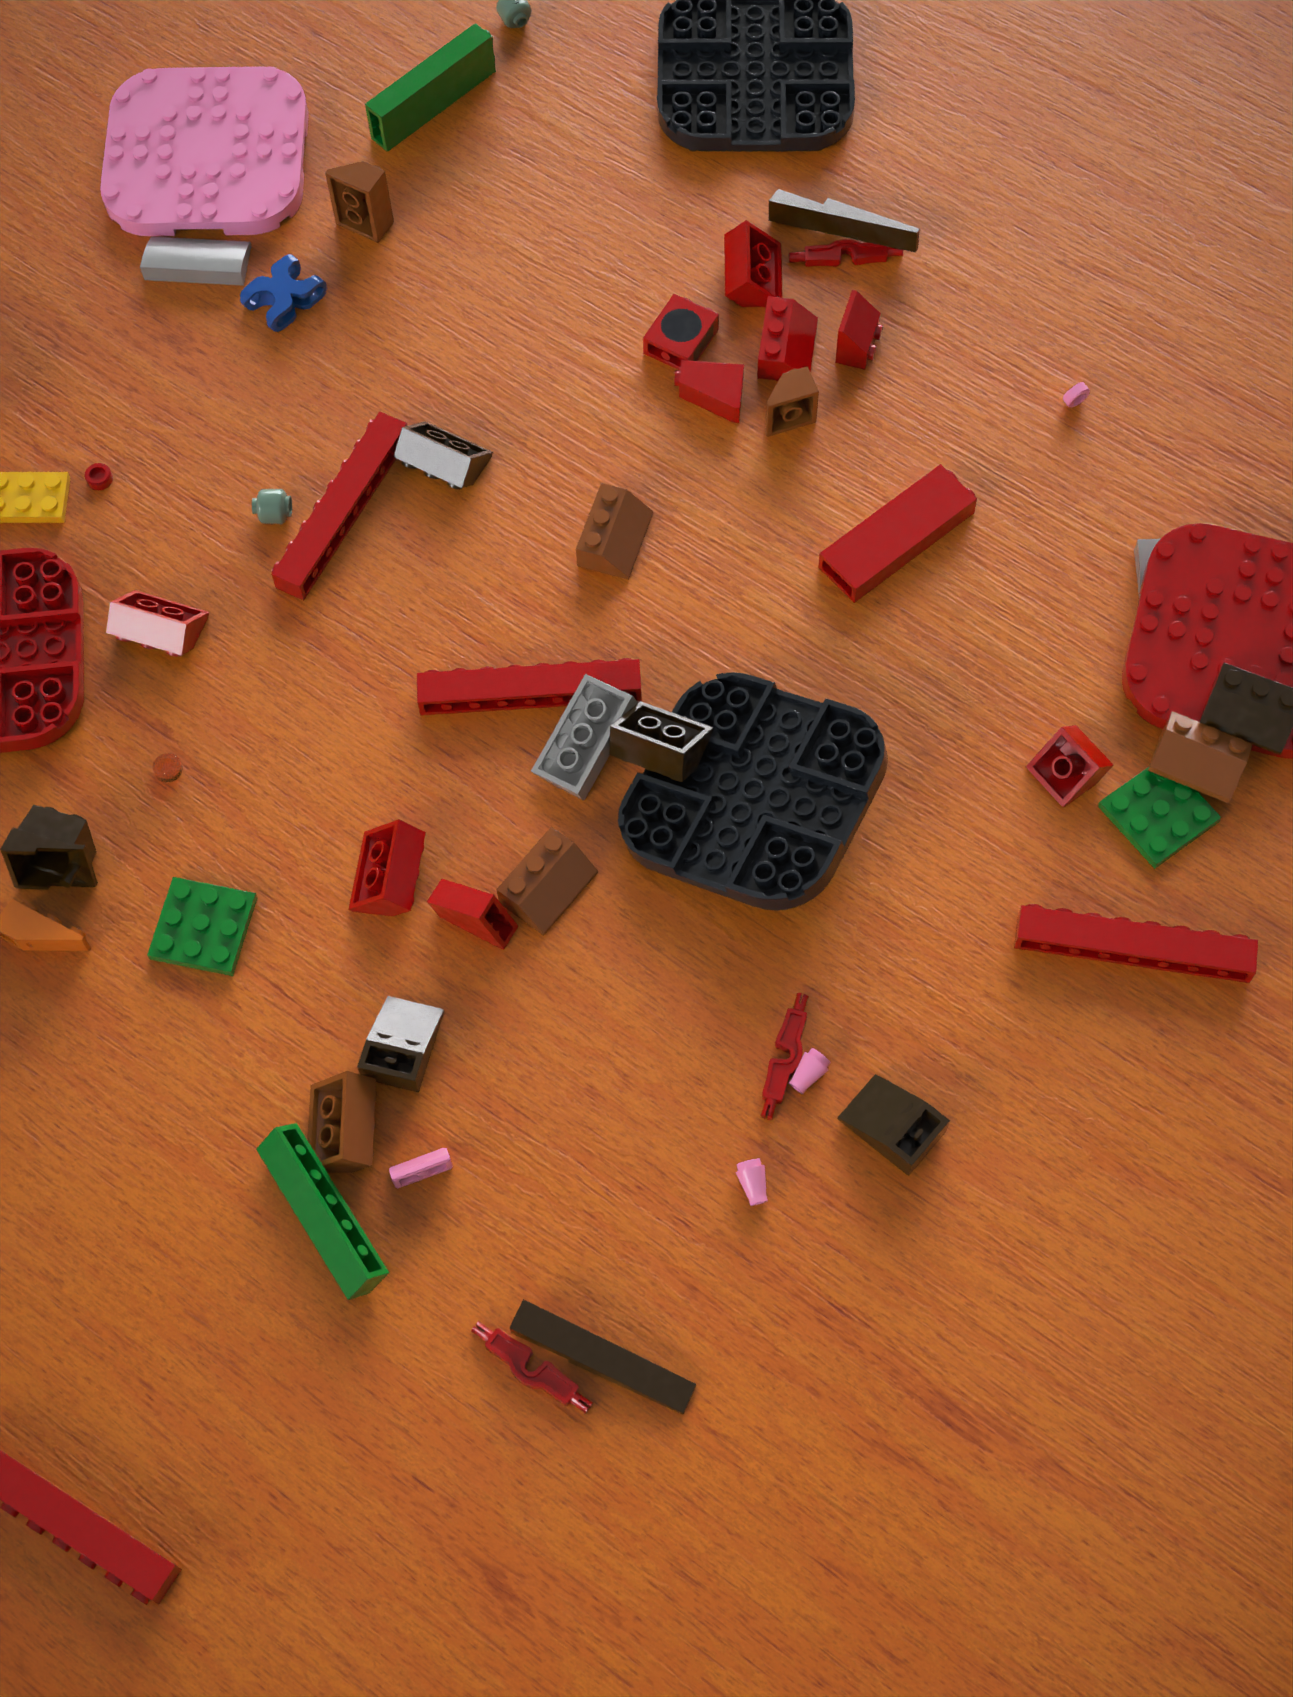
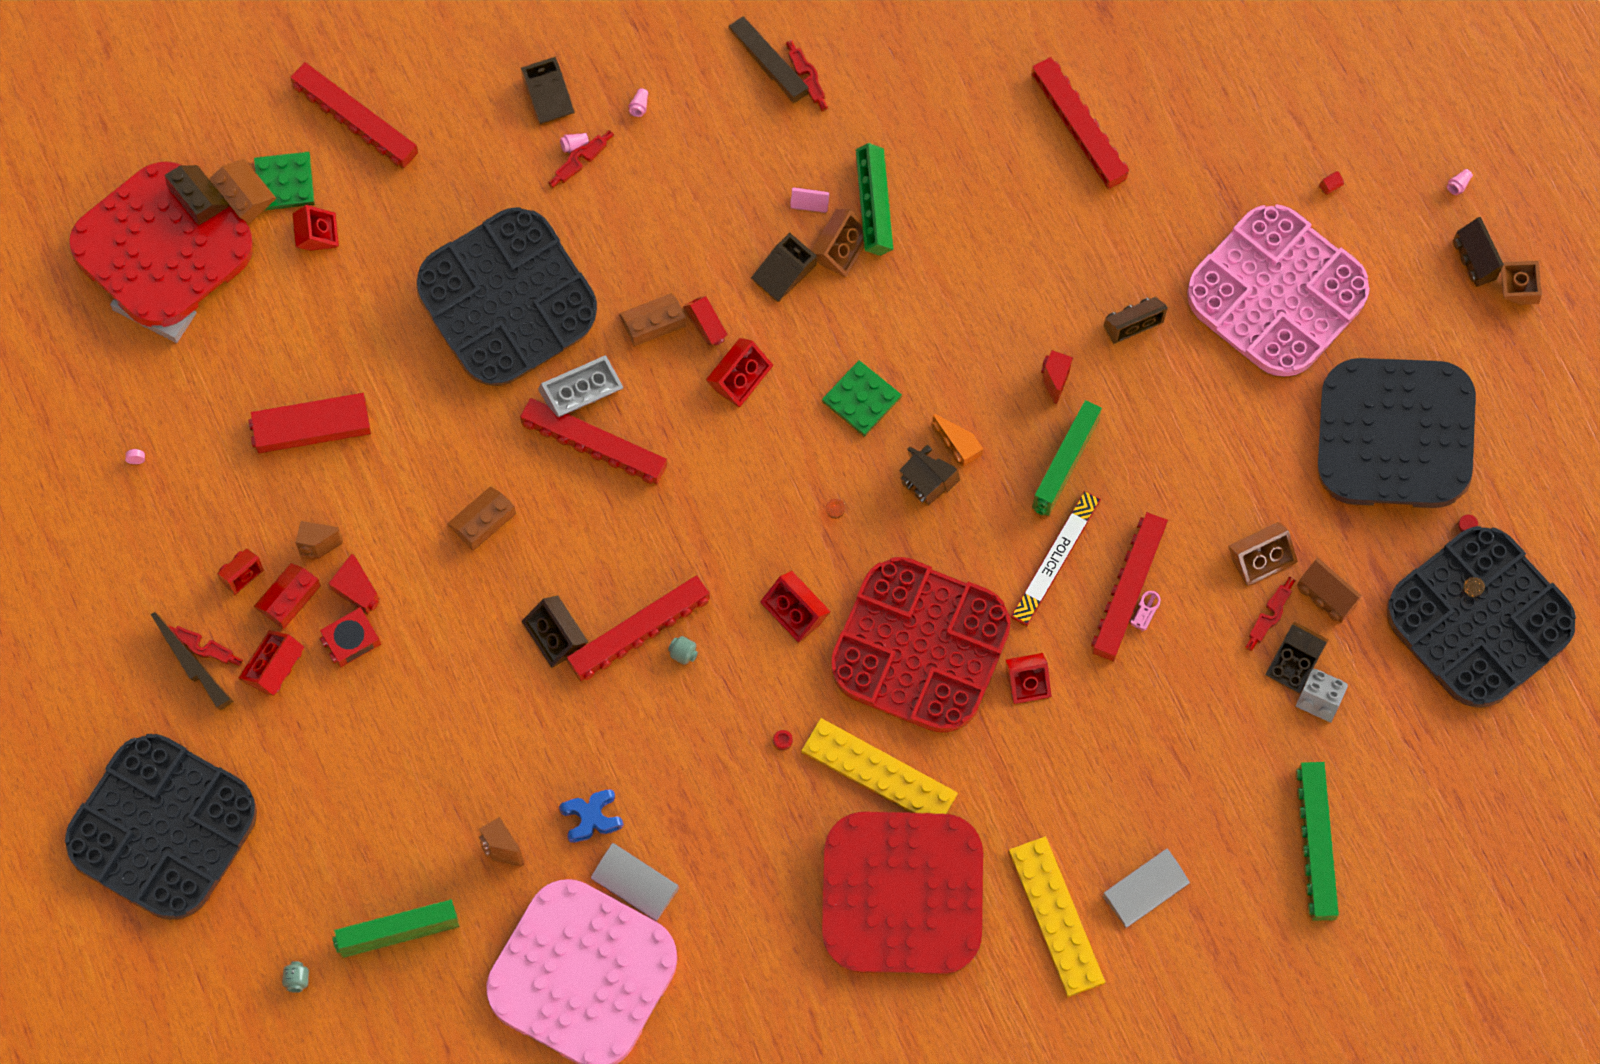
camera: 155 degrees left, 5 degrees up
(659, 741) = (539, 353): dark brown slope -> none

